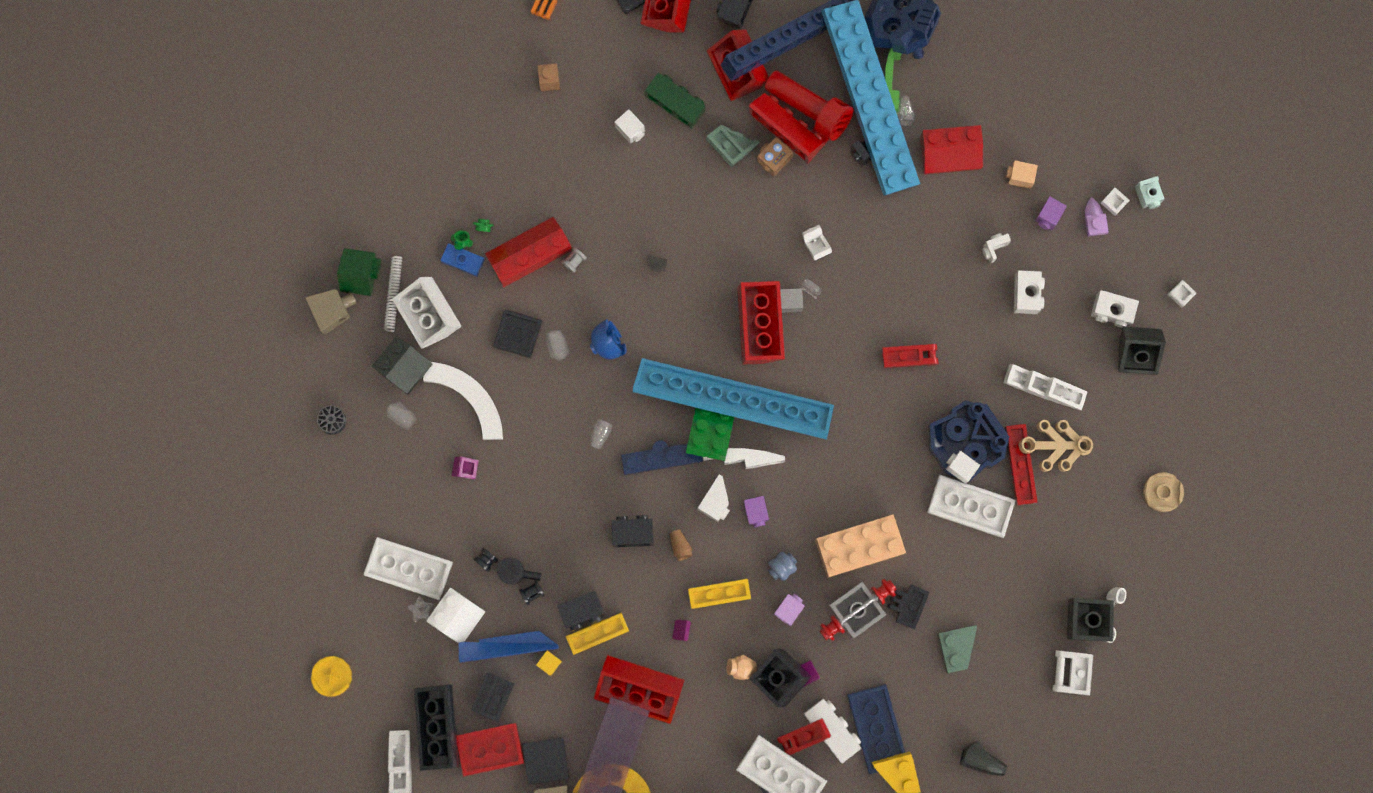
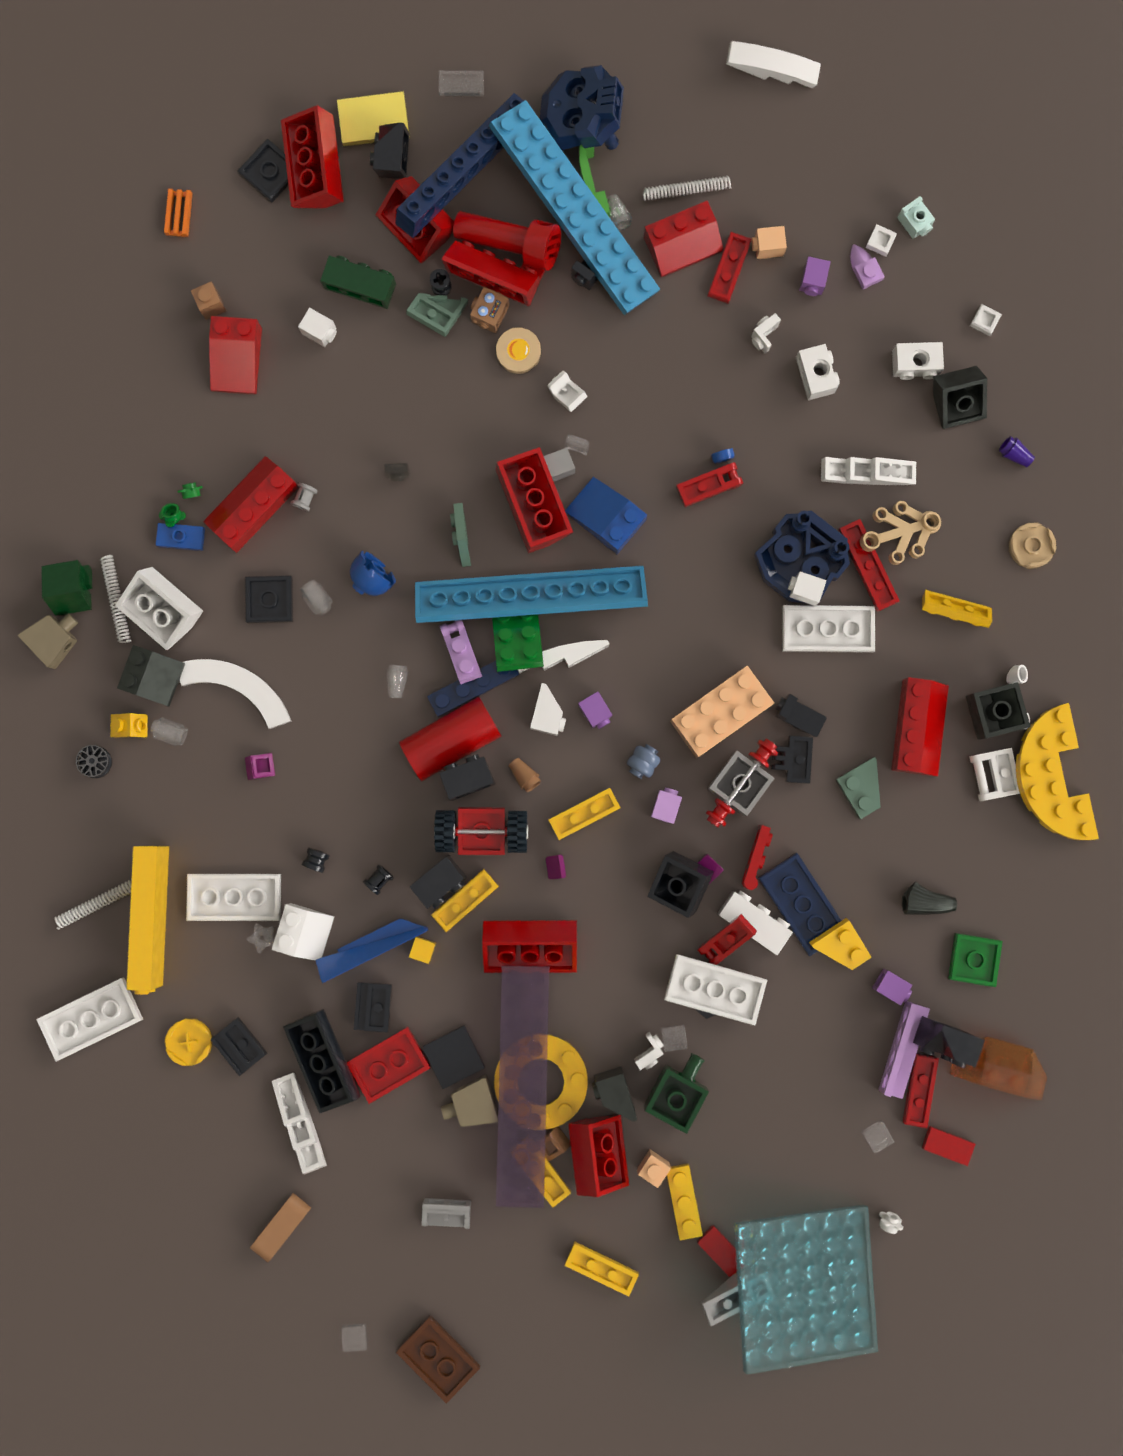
camera: 15 degrees left, 5 degrees up
(257, 630) = (89, 1019): none -> white plate
(296, 539) = (93, 903): none -> white piece
(333, 562) = (147, 918): none -> yellow brick
(369, 399) = (128, 725): none -> yellow bracket
(371, 693) = (238, 1046): none -> black plate
(512, 571) = (349, 863): black piece -> none
(555, 127) = (234, 354): none -> red slope
(628, 496) = (449, 739): none -> red brick
(629, 580) = (480, 831): none -> plate
(661, 427) = (461, 652): none -> lavender plate
(691, 332) = (460, 535): none -> sand green wing
(741, 667) = (634, 886): light nougat rock -> none
(746, 119) = (444, 276): none -> black bush
(787, 196) = (518, 350): none -> tan tile
(816, 353) = (606, 515): none -> blue slope
(850, 677) = (756, 858): none -> red plate
(924, 570) = (800, 715): none -> black bracket
(928, 336) = (722, 456): none -> blue tile
(975, 107) = (685, 185): none -> white piece
(982, 184) = (729, 267): none -> red tile
(1022, 612) = (920, 727): none -> red slope
(1070, 30) = (772, 62): none -> white slope
(1083, 524) = (957, 609): none -> yellow plate
(1111, 687) = (1042, 778): none -> yellow plate
(1173, 409) = (1016, 452): none -> dark purple cone

